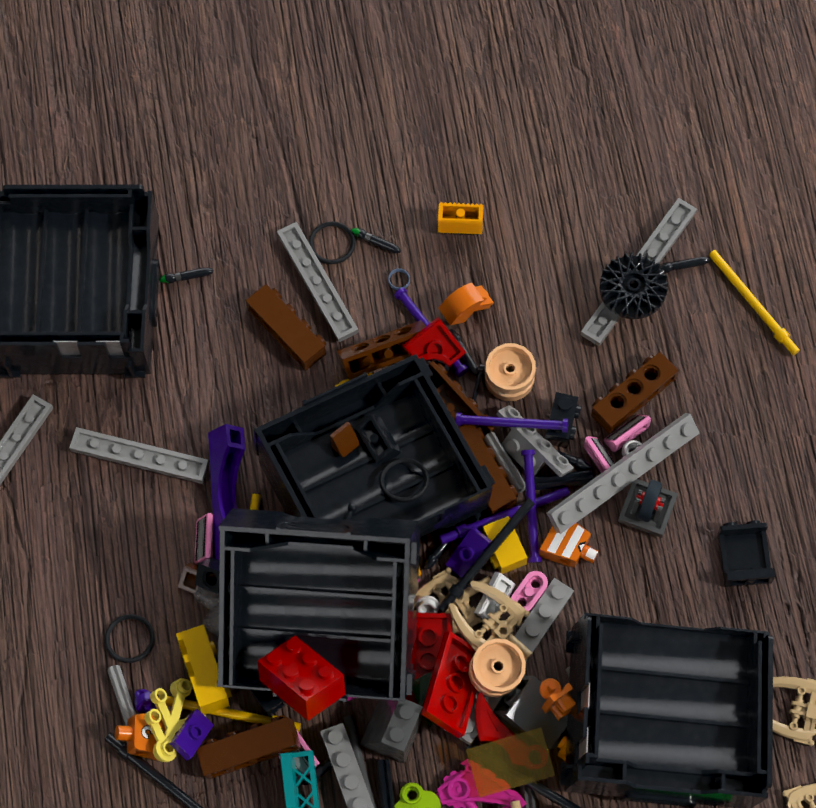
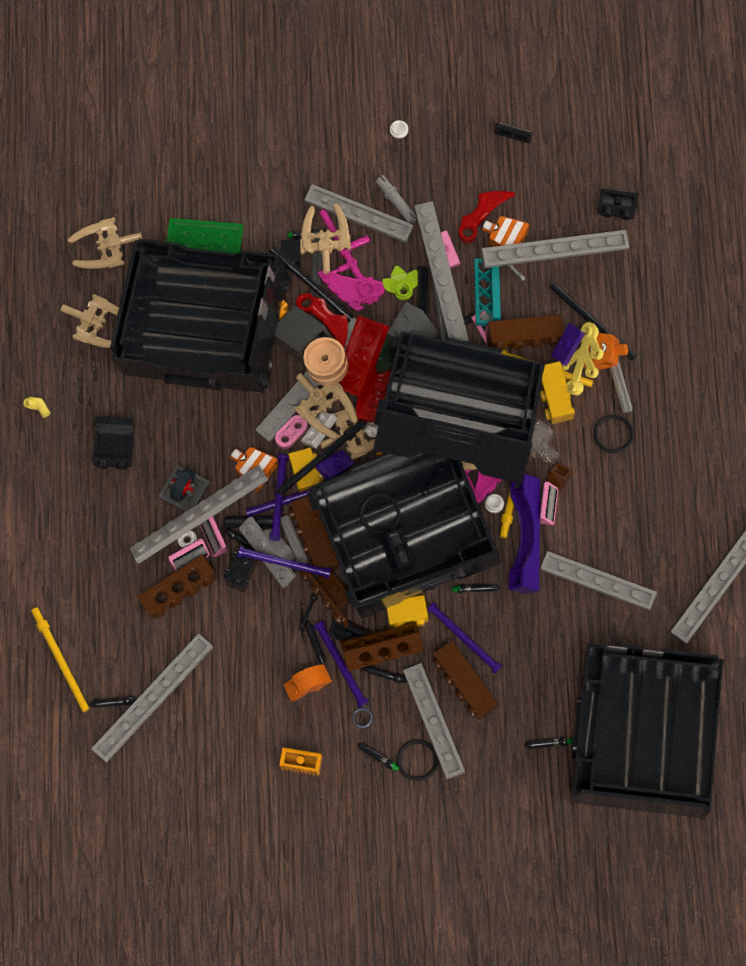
camera: 170 degrees left, 5 degrees up
(143, 702) = (601, 379): dark purple tile -> none
(208, 575) = (541, 465): black brick -> none
(282, 369) = (464, 638): none -> dark purple bar
(301, 677) = (478, 355): red brick -> none
(344, 440) = (424, 549): reddish brown slope -> none
(378, 327) = (385, 674): none -> black piece
(435, 343) = (338, 642): red tile -> none
(510, 372) = (279, 602): light nougat wheel -> none
(510, 762) = (325, 296): clear yellow piece -> none
(557, 700) = (283, 328): orange hips -> none
(647, 282) = (166, 686): black wheel -> none

